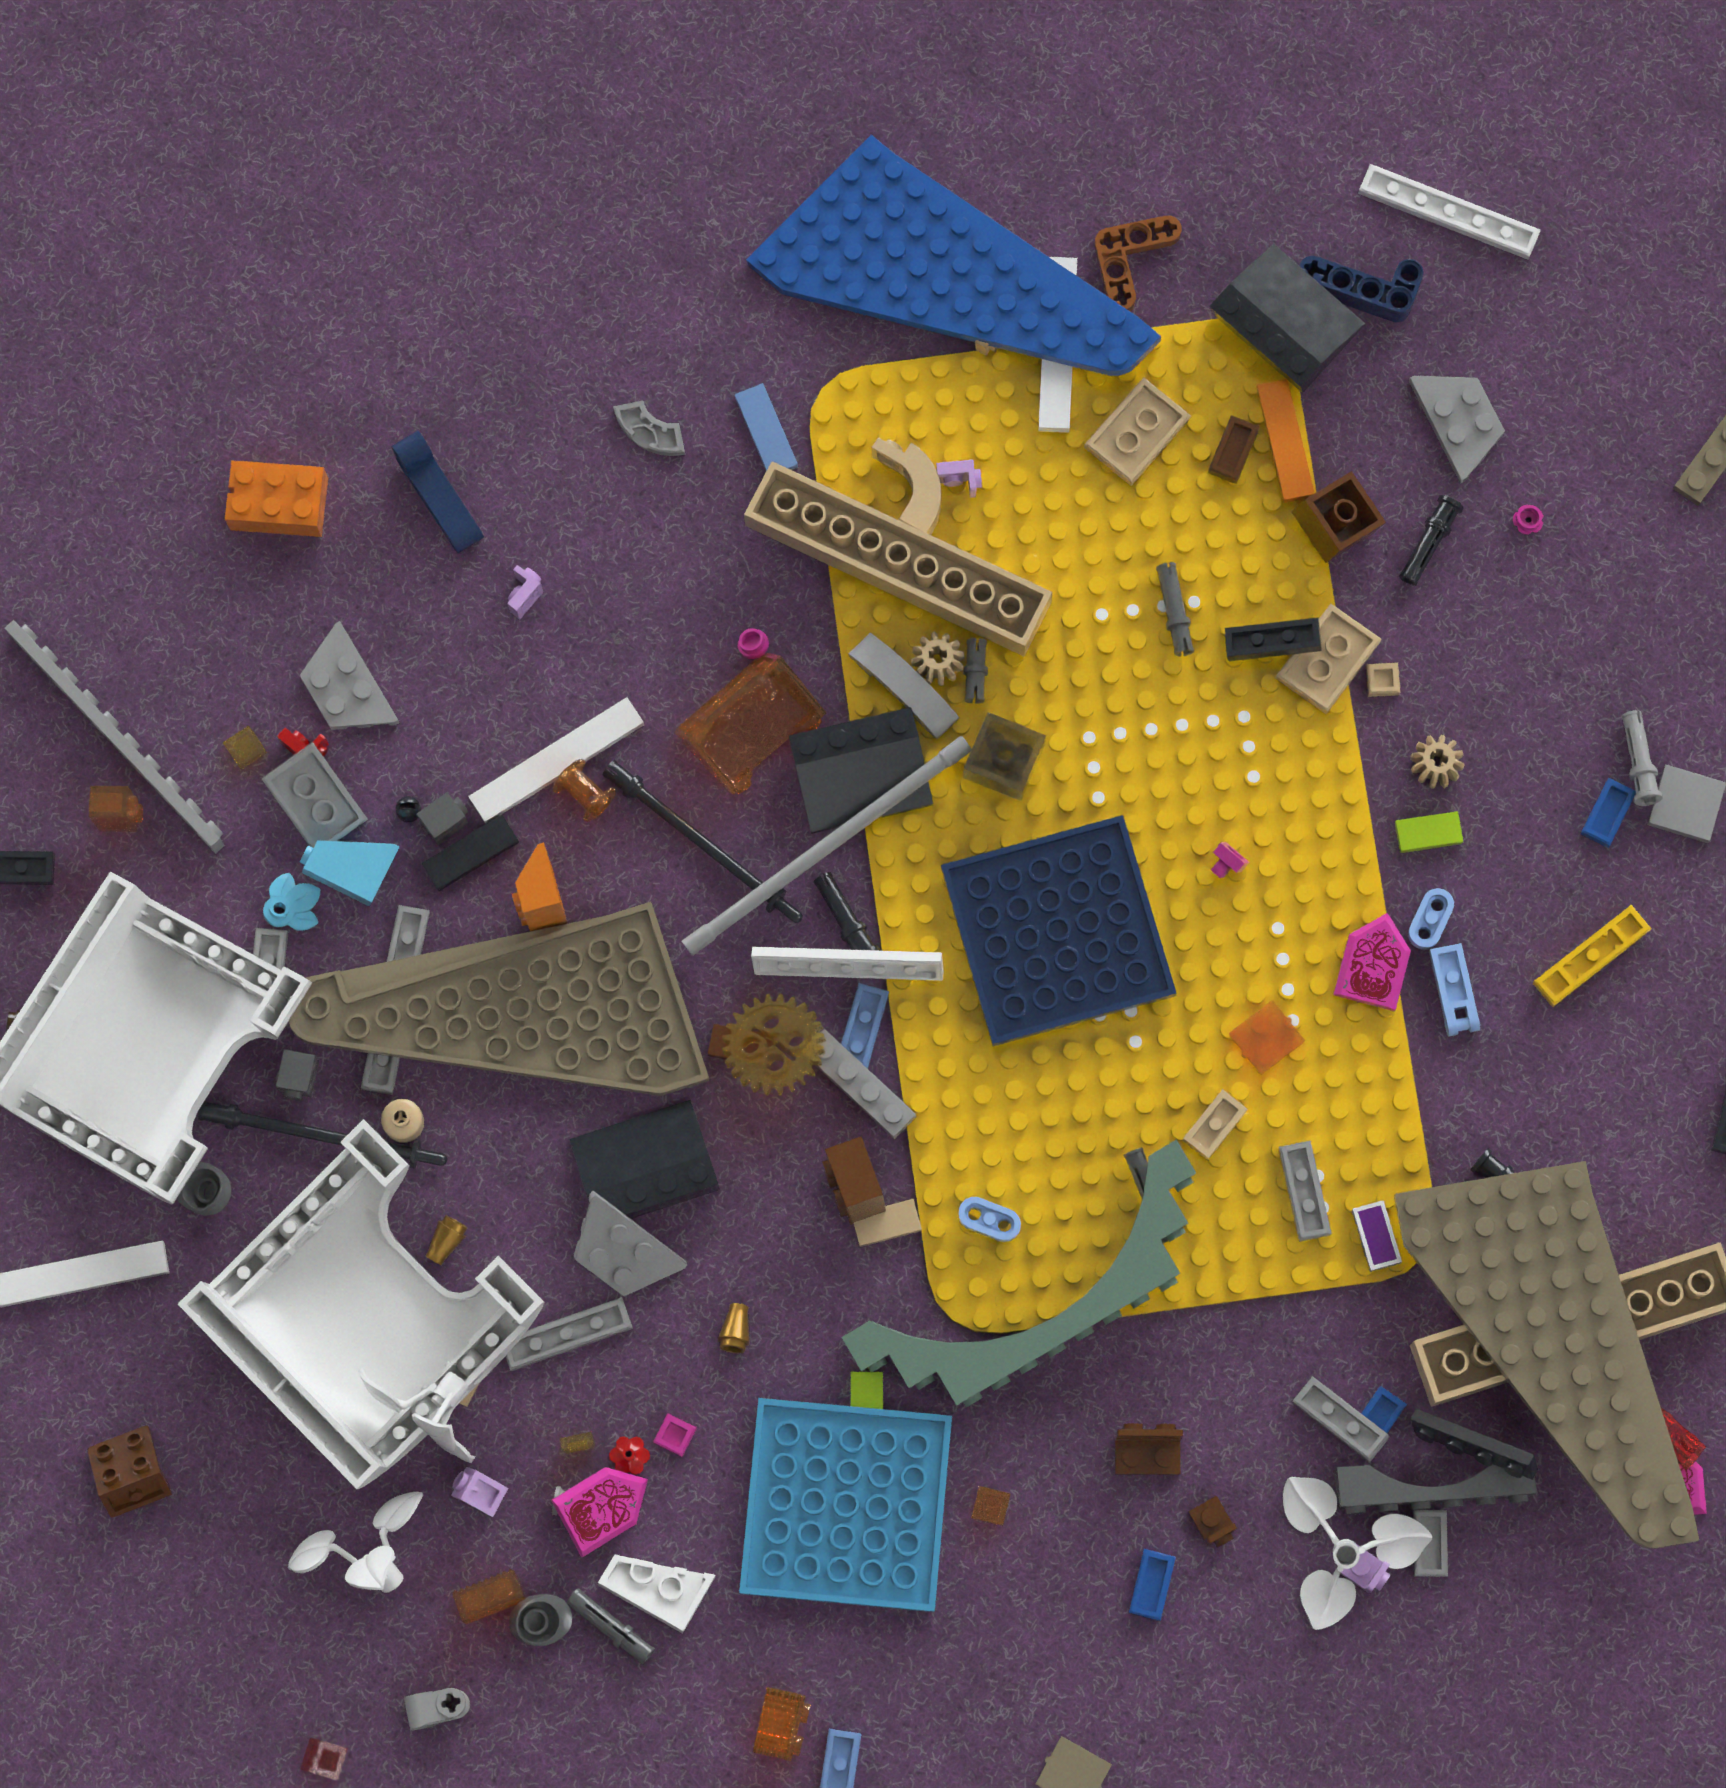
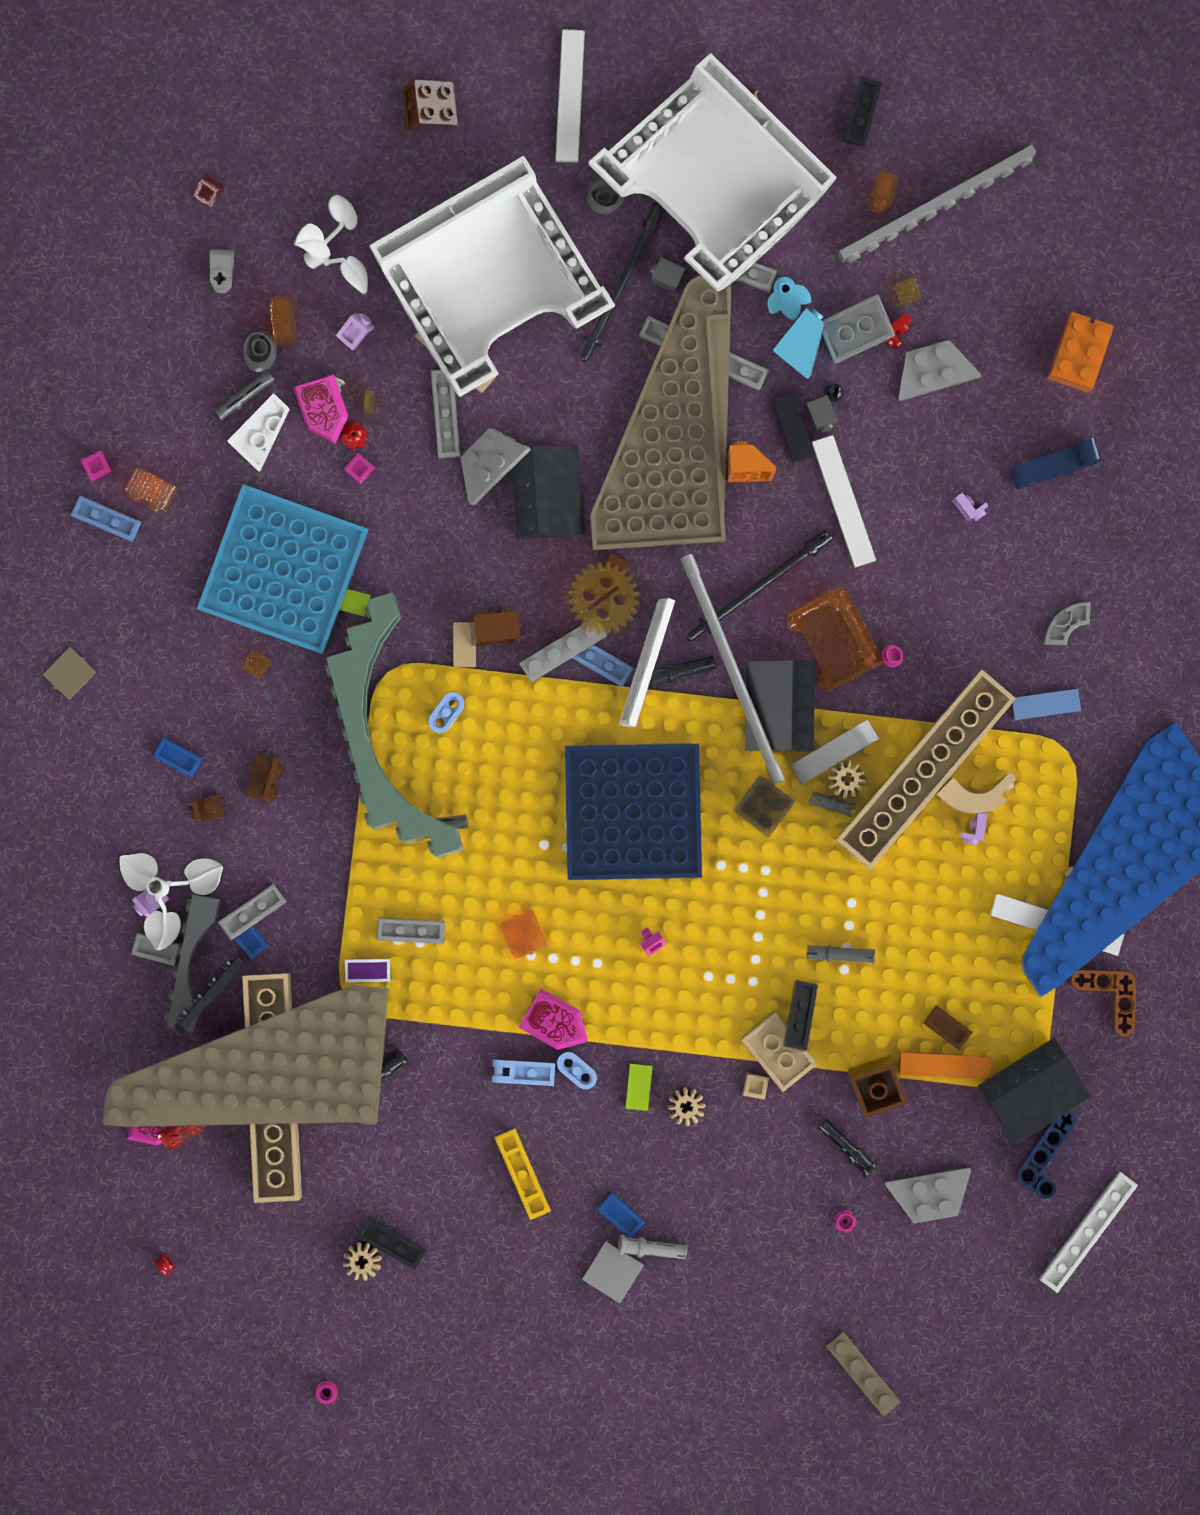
camera: 95 degrees right, 10 degrees up
(393, 1115) = (611, 343): tan head -> none
(445, 1397) = (416, 319): white plant -> none
(446, 1238) = (529, 348): pearl gold cone -> none
(582, 788) = (817, 512): clear orange hose -> none
(735, 1330) = (418, 525): pearl gold cone -> none
(1137, 431) = (978, 963): tan tile -> none
(1215, 1124) = (471, 882): tan plate -> none

